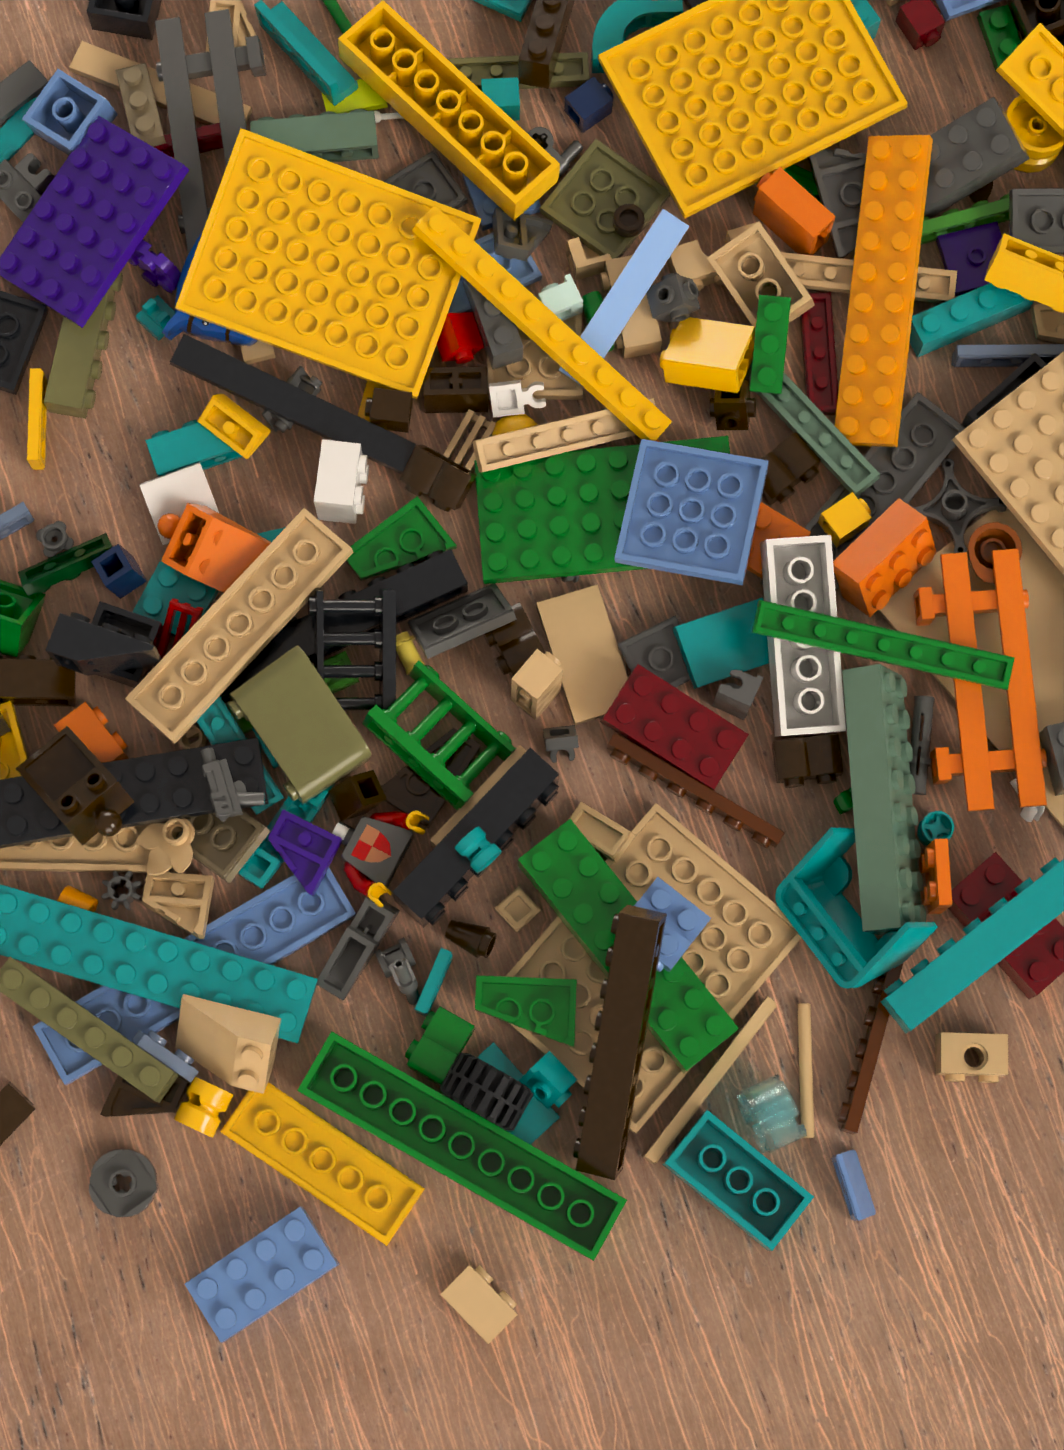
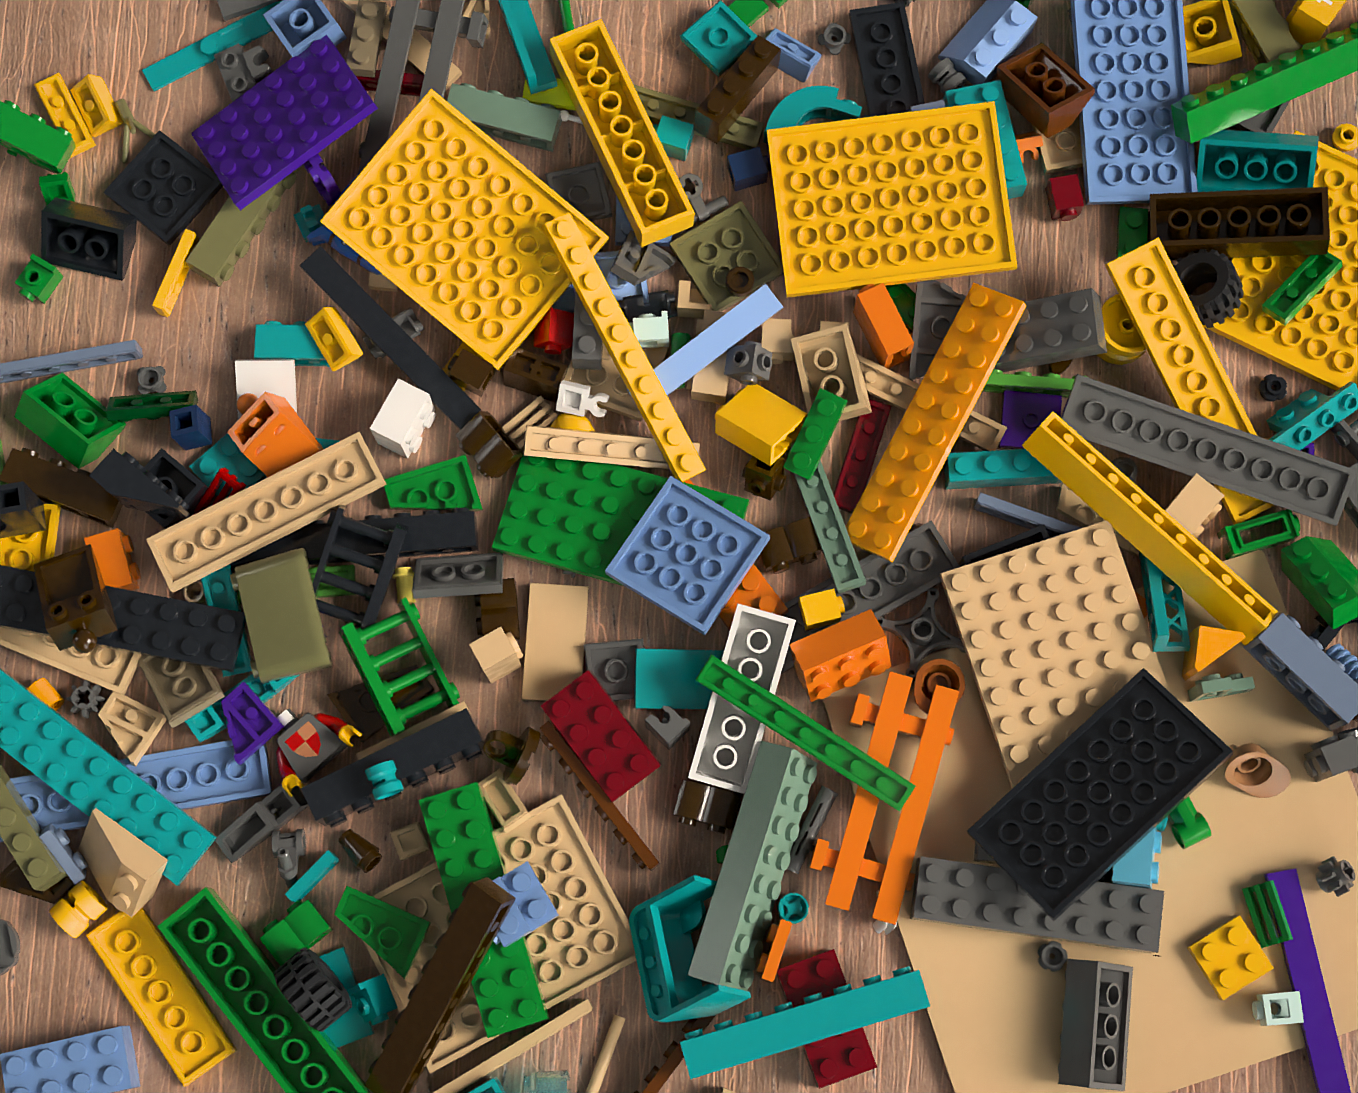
camera: 25 degrees right, 0 degrees up
(165, 849) = (135, 680): tan plate -> none
(226, 794) = (197, 652): dark grey piece -> none
(357, 795) = (311, 692): dark brown brick -> none
(553, 272) = (658, 301): none -> black hinge
(560, 739) = (502, 708): dark grey tile -> none
(595, 778) = (515, 754): none -> dark brown tile

